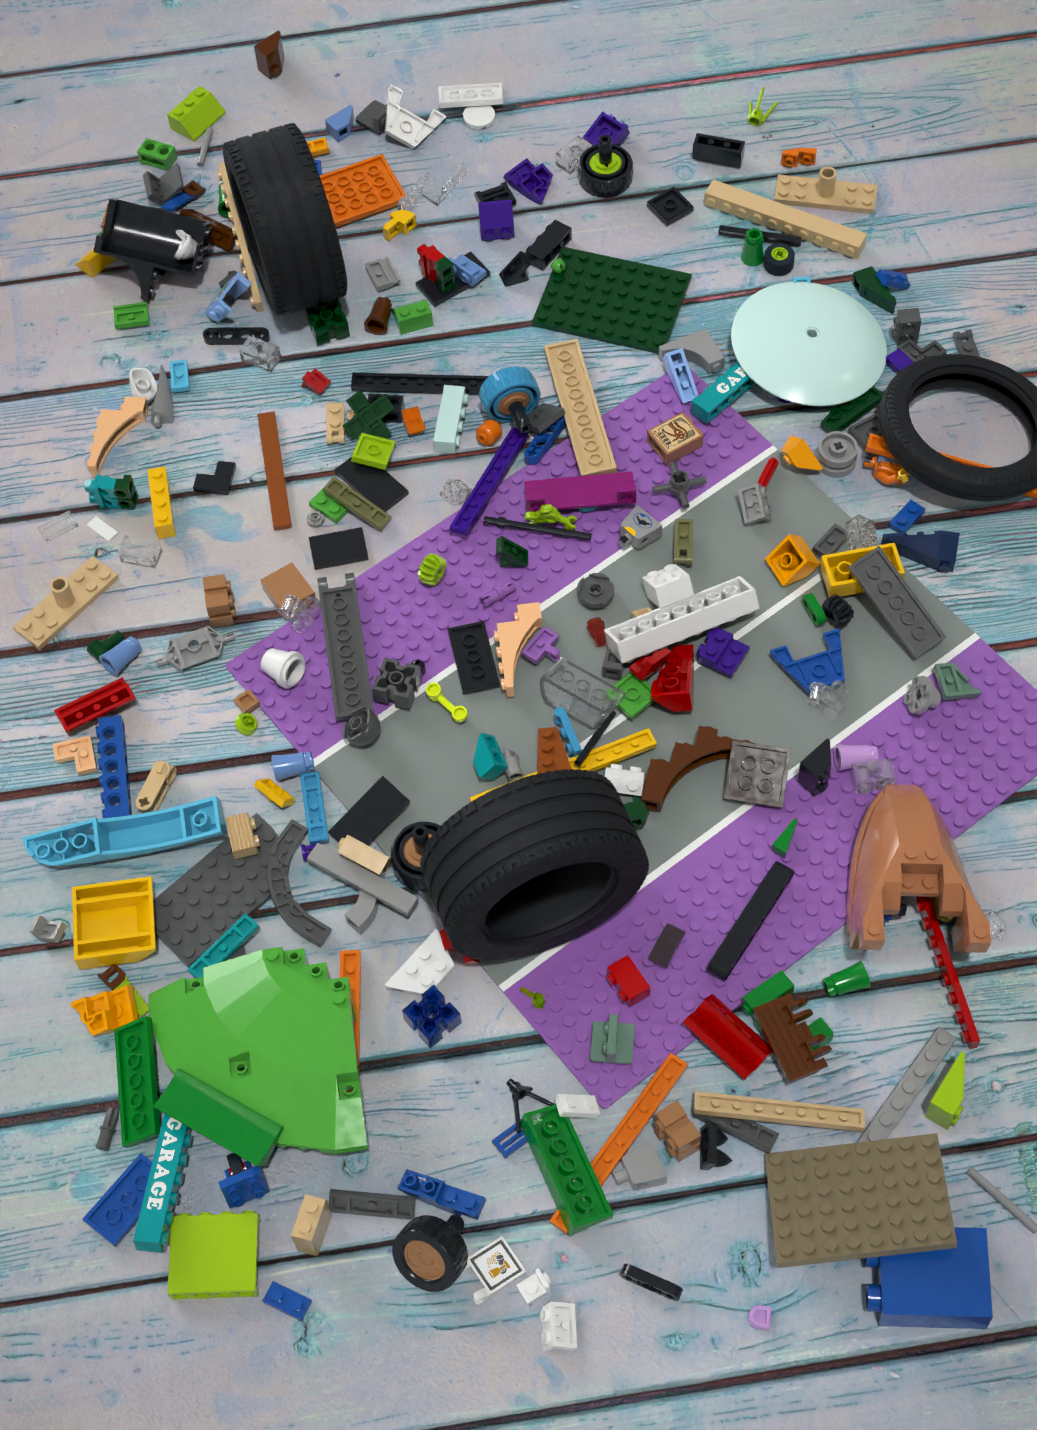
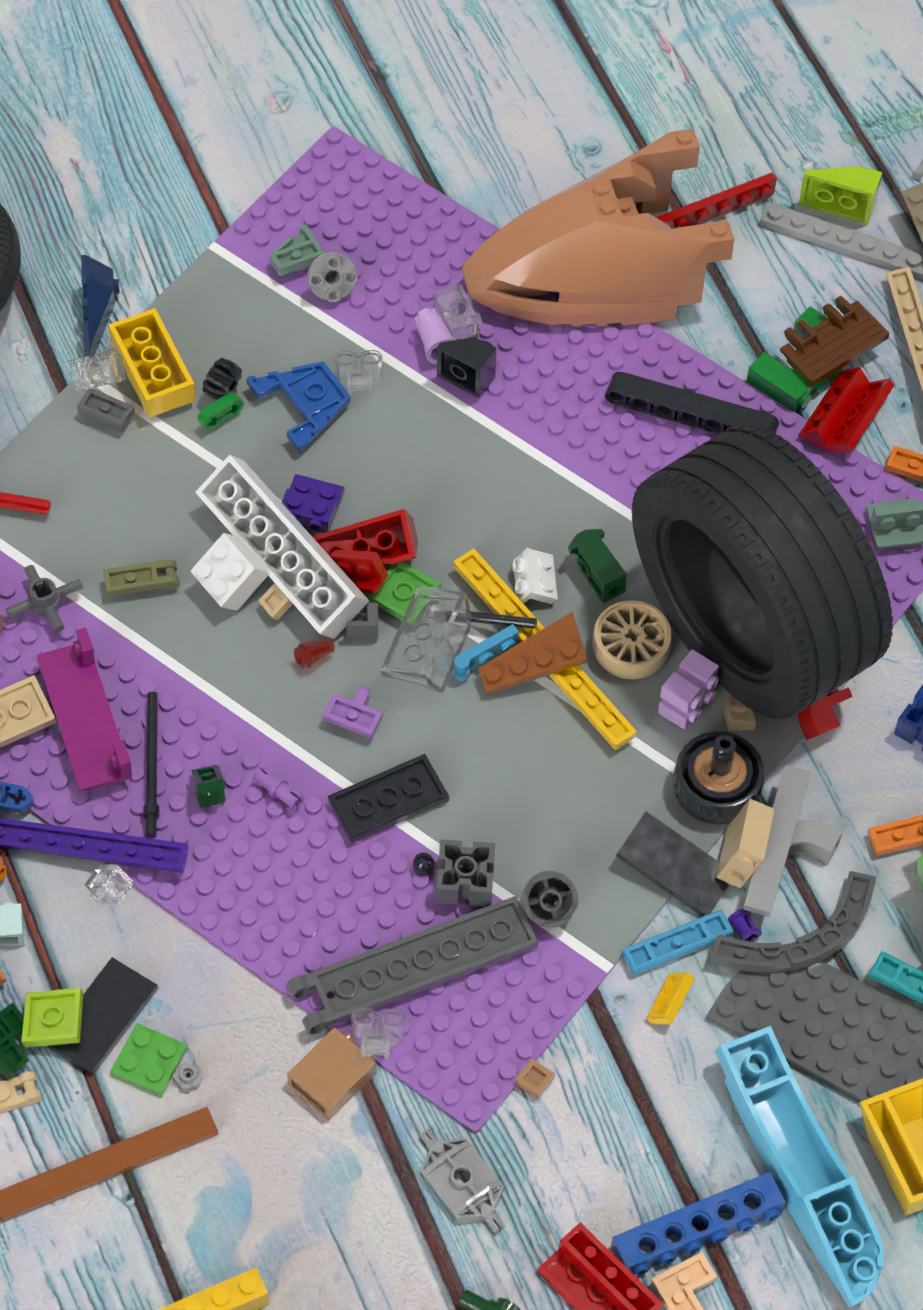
camera: 110 degrees left, 0 degrees up
(120, 655) = (504, 1279): medium blue plant -> none
(155, 786) = (711, 1157): tan piece -> none
(219, 482) = (143, 1239): black tile -> none
(219, 600) = (380, 1157): medium nougat brick -> none
(241, 835) = (758, 1008): tan brick -> none
(246, 723) = (570, 1068): lime hat -> none
(283, 666) = (476, 1029): white piece -> none
(292, 764) = (625, 982): medium blue plant -> none
(338, 548) = (235, 1030): black tile -> none
(357, 503) = (156, 1016): olive plate -> none
(424, 968) = (863, 754): white wing -> none
(432, 569) = (262, 874): lime gear -> none
(435, 693) = (487, 792): neon yellow bar -> none
(488, 757) = (555, 730): teal slope -> none
(513, 638) = (357, 750): light nougat arch -> none
(514, 769) = (551, 709): light grey piece -> none
(551, 515) = (135, 745): lime piece -> none
(599, 599) = (250, 681): dark grey plate -> none
(639, 529) = (131, 633): light grey torso -> none
(685, 757) = (488, 517): reddish brown arch -> none
(755, 503) = (63, 502): light grey bracket -> none
(757, 774) = (493, 428): plate -> none
(783, 842) = (572, 394): green piece -> none
(792, 560) = (148, 446): light orange slope -> none
(847, 980) = (734, 307): green plant -> none
(896, 602) = (201, 313): dark grey plate -> none
(907, 517) = (38, 340): blue plate -> none

